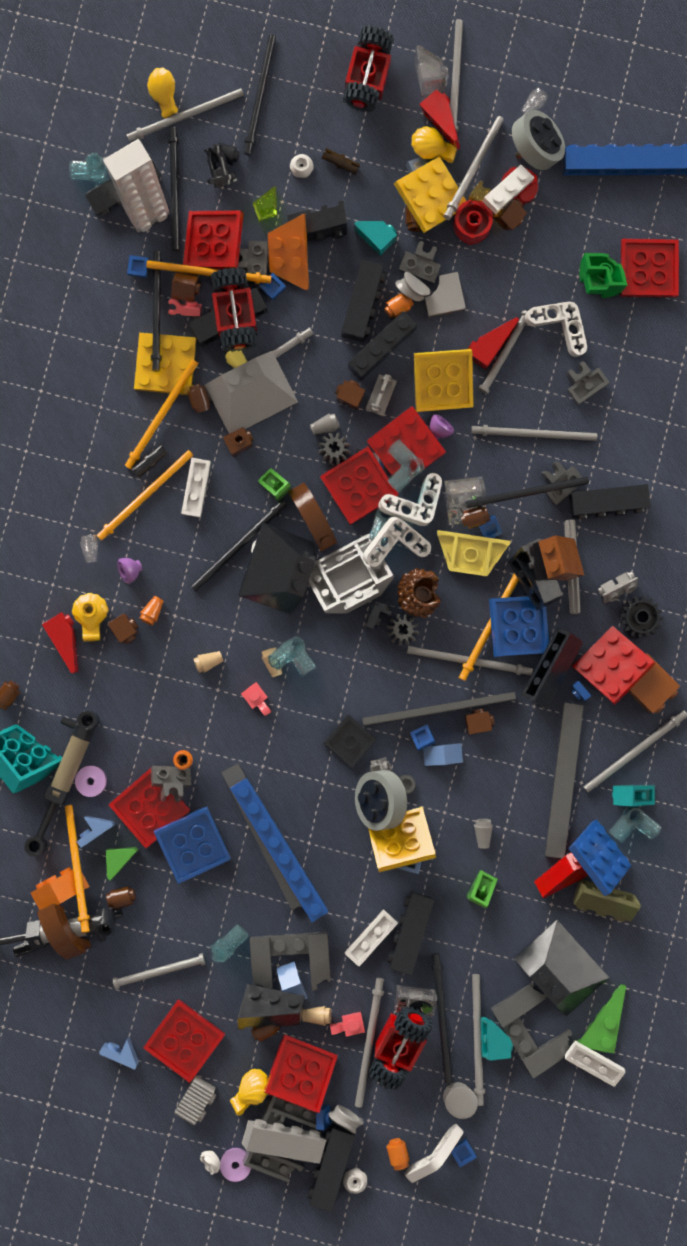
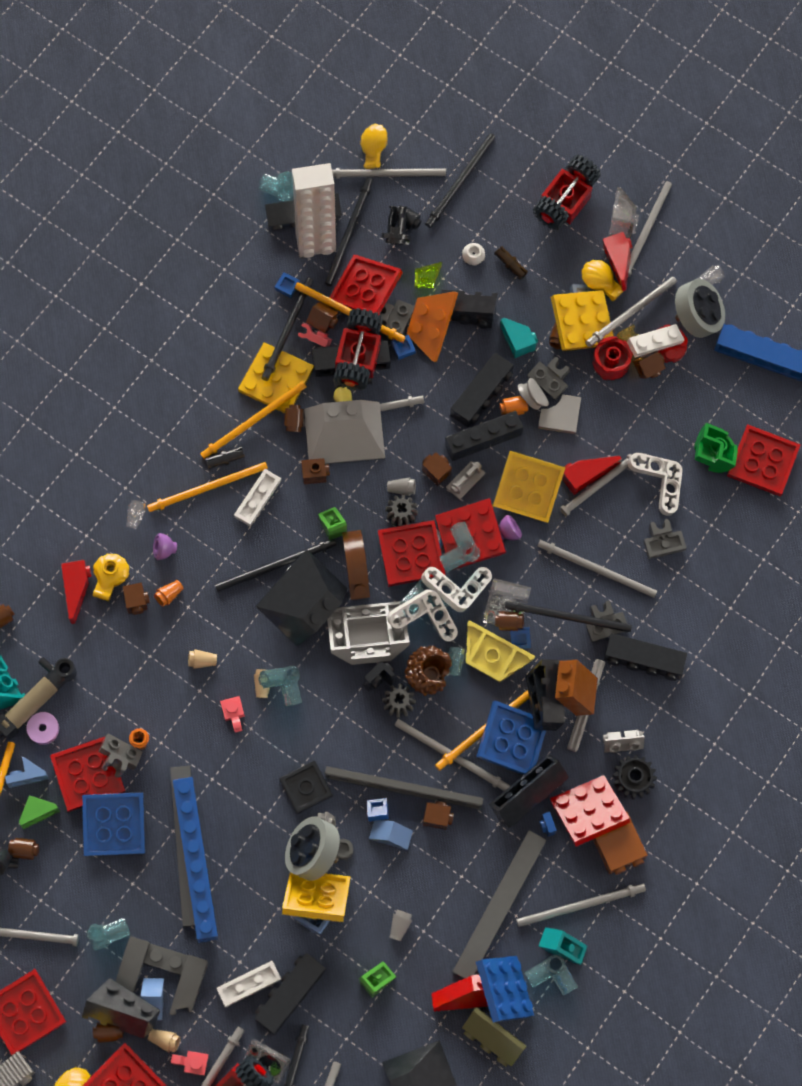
camera: 20 degrees right, 15 degrees down
(439, 567) = (457, 656): none -> clear light blue cone

